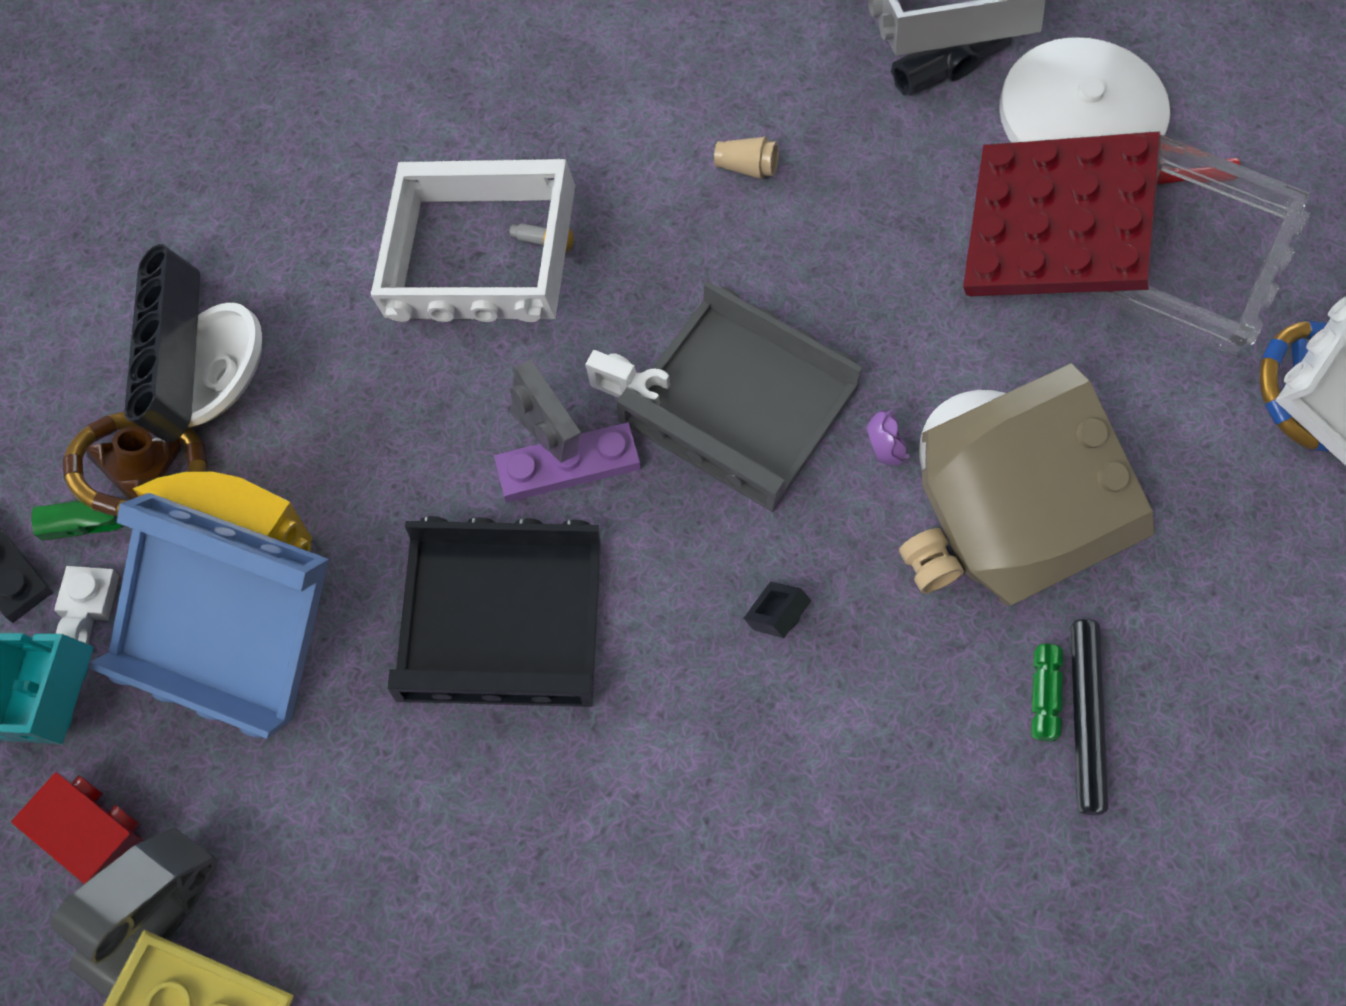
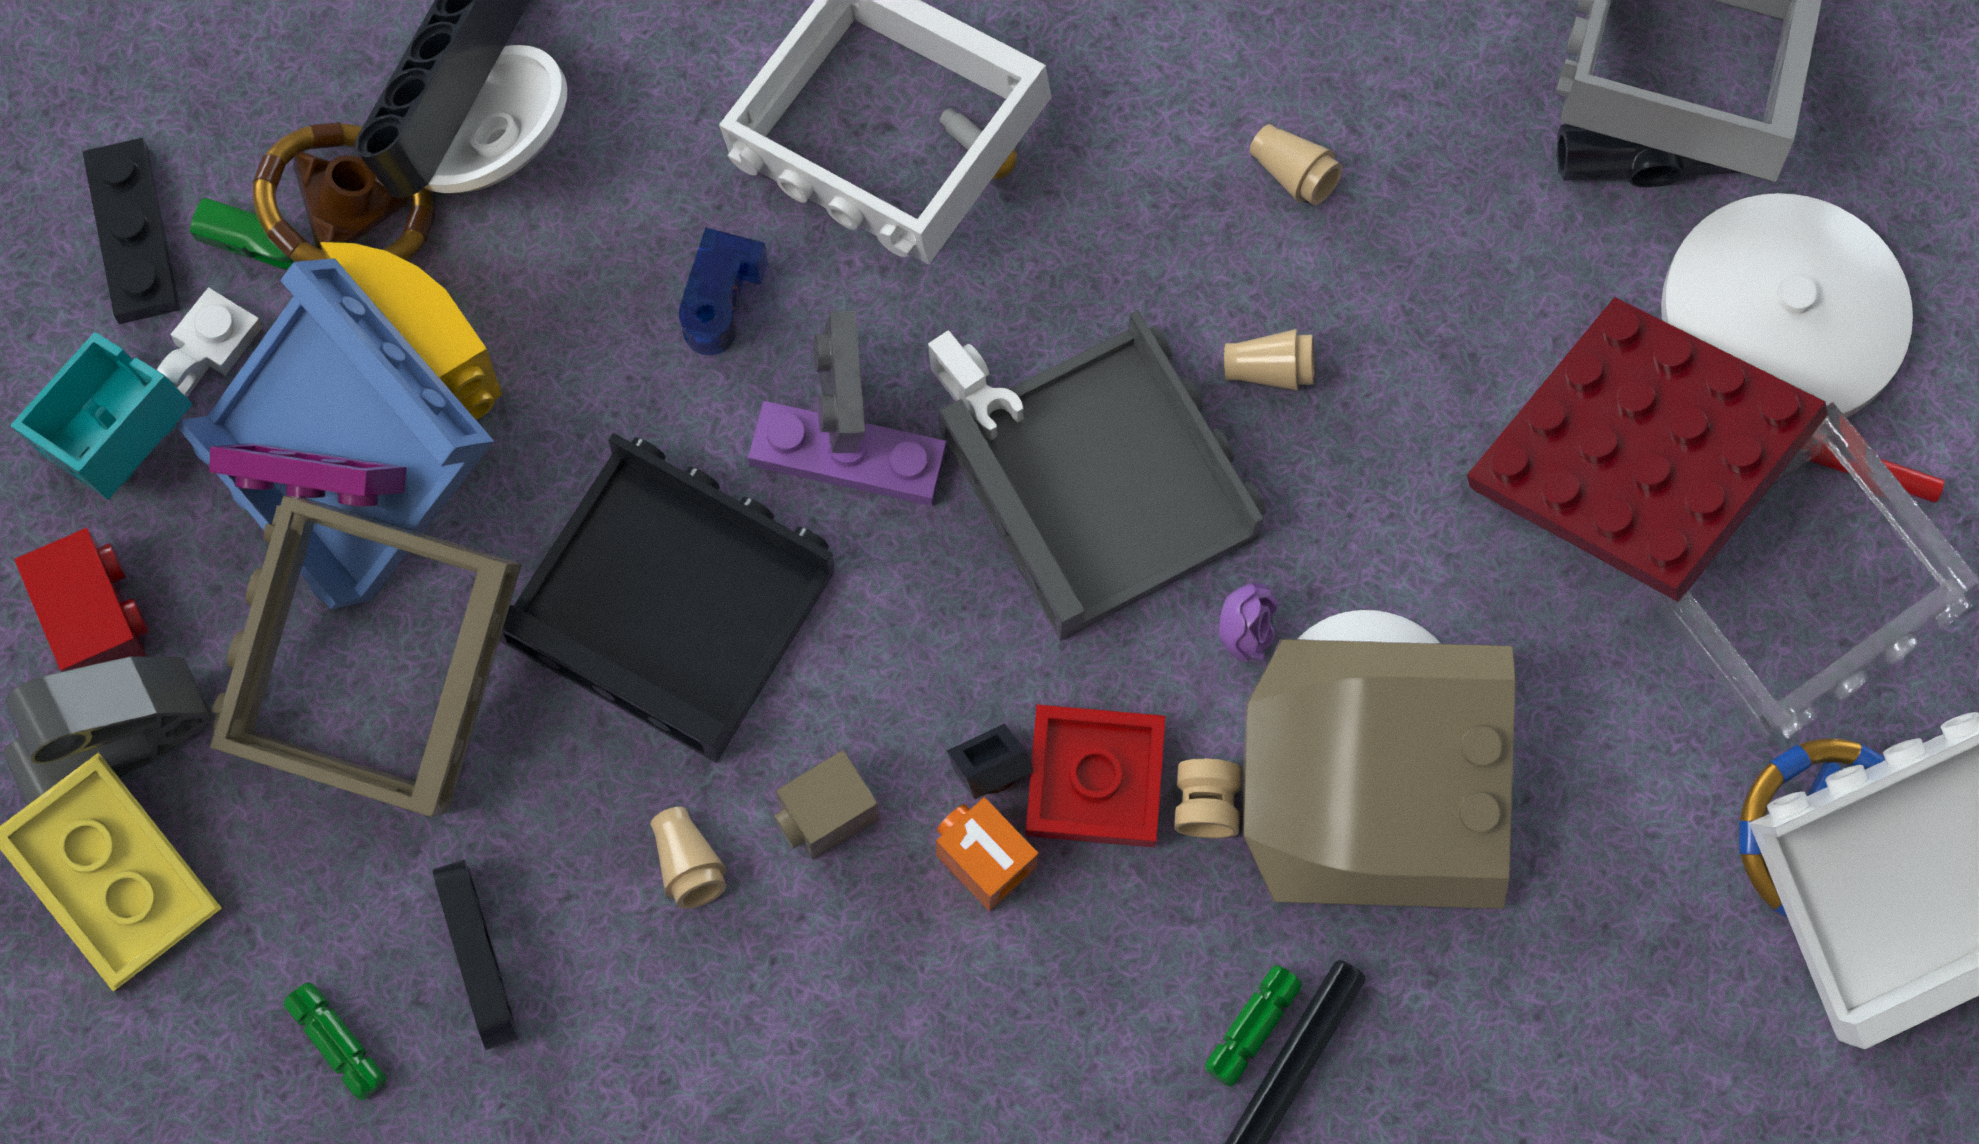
camera: 25 degrees right, 5 degrees up
(202, 651) = (307, 473): none -> magenta plate
(226, 796) = (255, 650): none -> dark tan window
(419, 389) = (715, 287): none -> clear blue leg
(499, 928) = (475, 954): none -> black beam
(613, 783) = (687, 861): none -> tan cone
(685, 695) = (825, 806): none -> dark tan brick
(805, 275) = (1272, 360): none -> tan cone
(809, 670) = (985, 852): none -> orange brick
(850, 584) = (1095, 776): none -> red plate

